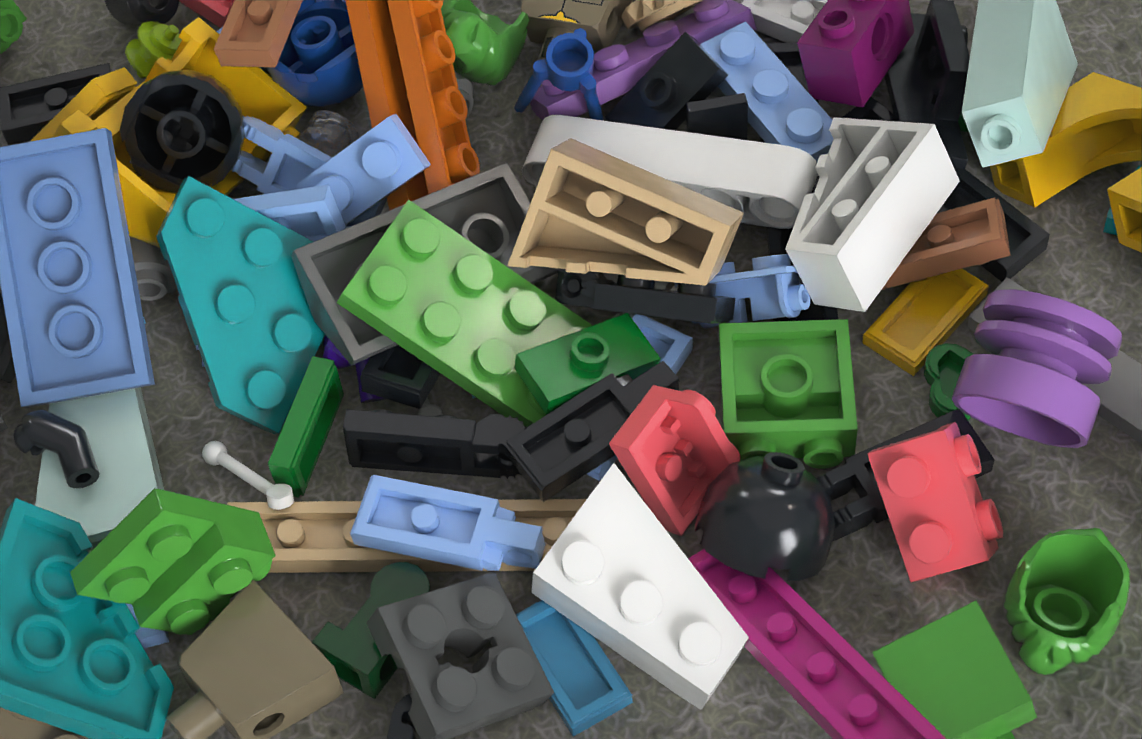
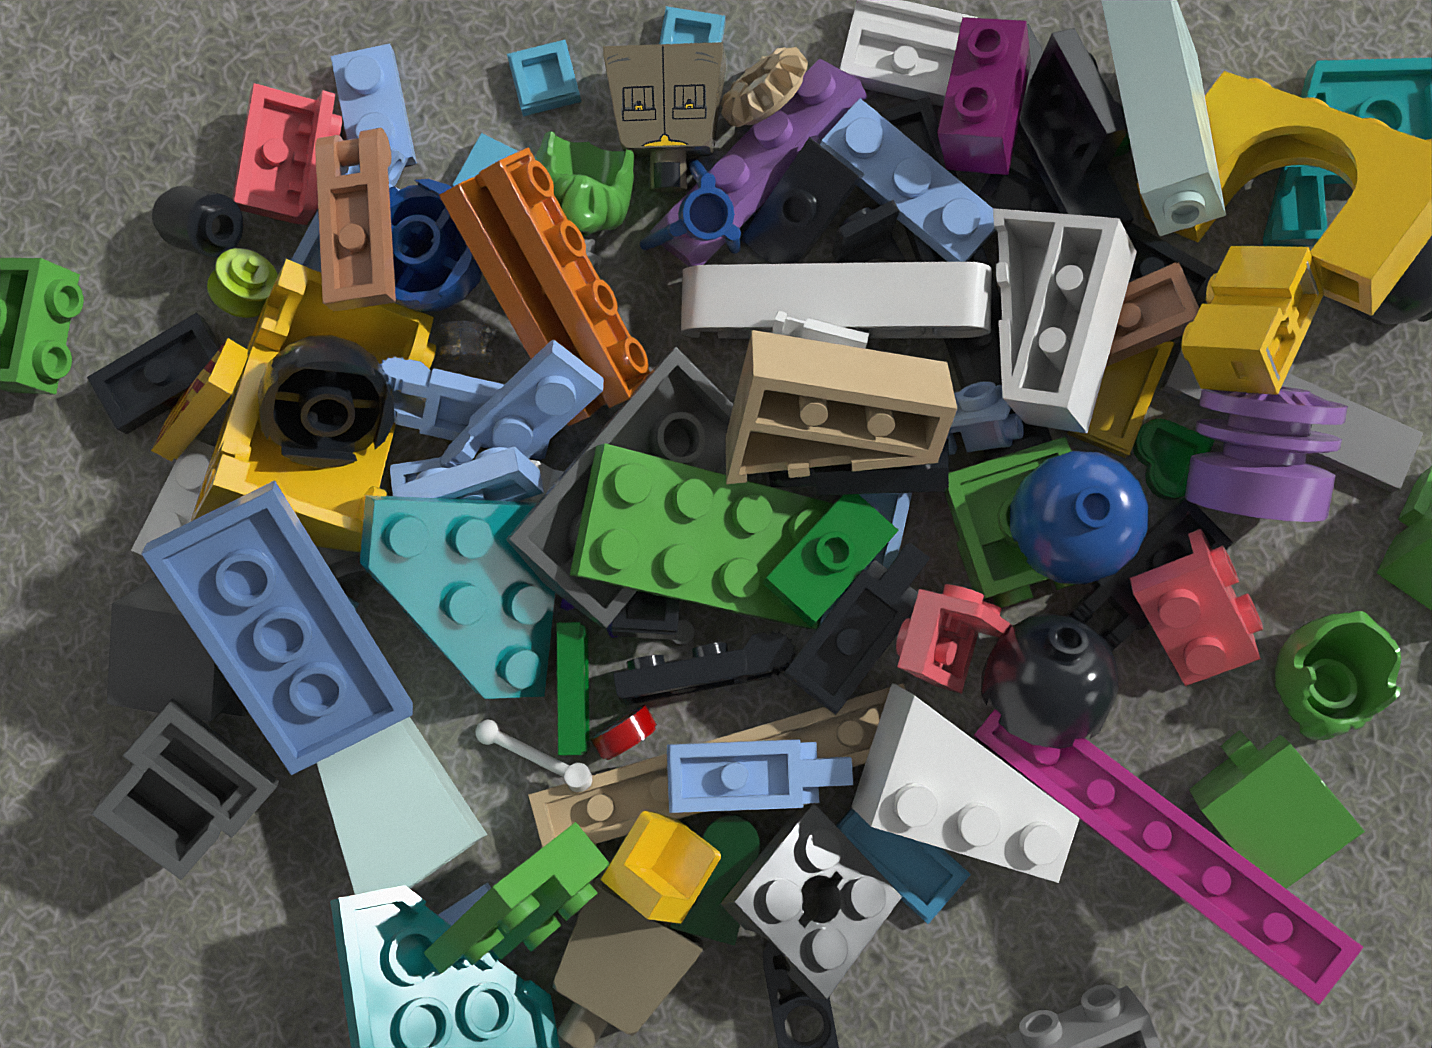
camera: 20 degrees left, 25 degrees up
(68, 440) = (346, 796): black arm -> none
(322, 576) = (661, 867): none -> yellow panel
(338, 476) = (624, 733): none -> red tile
(834, 377) = (1079, 517): none -> blue cylinder
(1047, 239) = (1253, 319): none -> yellow piece

